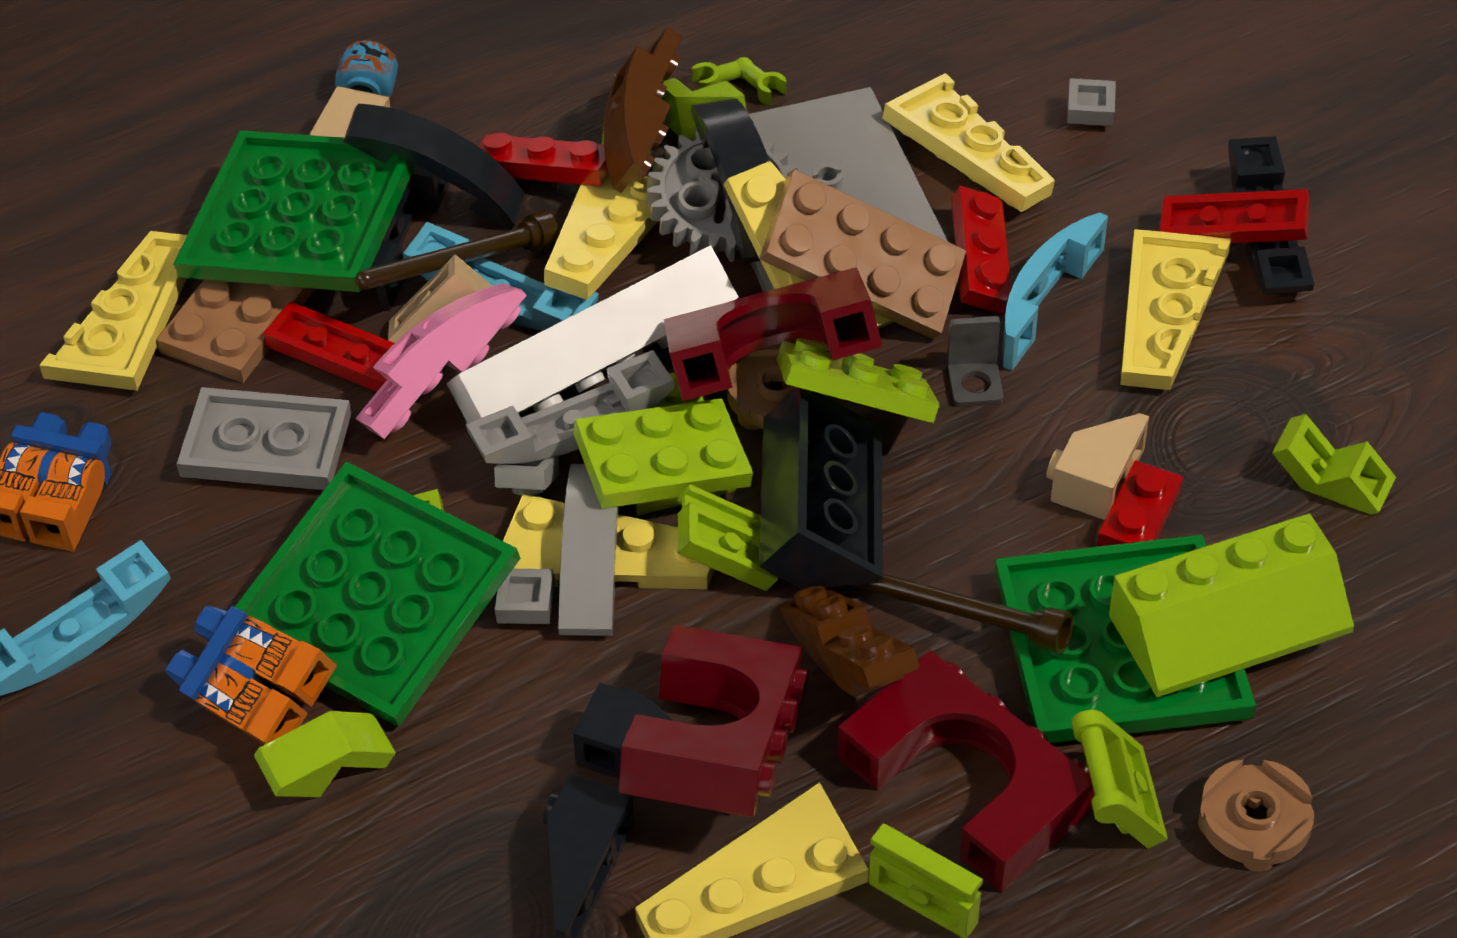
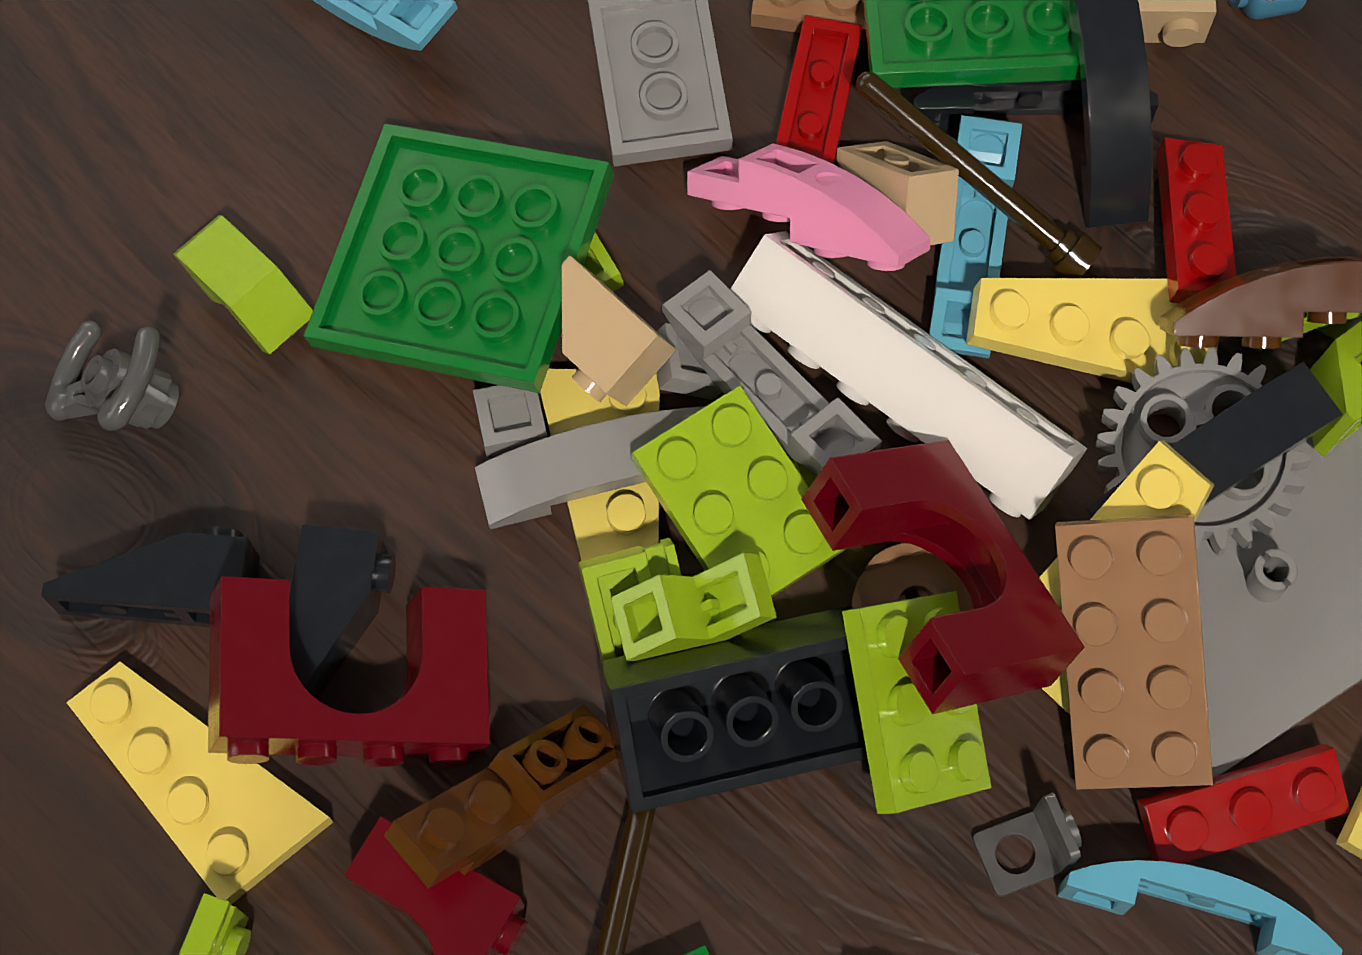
camera: 75 degrees right, 20 degrees up
(236, 662) = (312, 175): hips -> none
(386, 853) = (112, 385): none -> dark grey piece
(496, 493) = (607, 338): none -> tan slope
(744, 482) = (694, 611): none -> lime slope

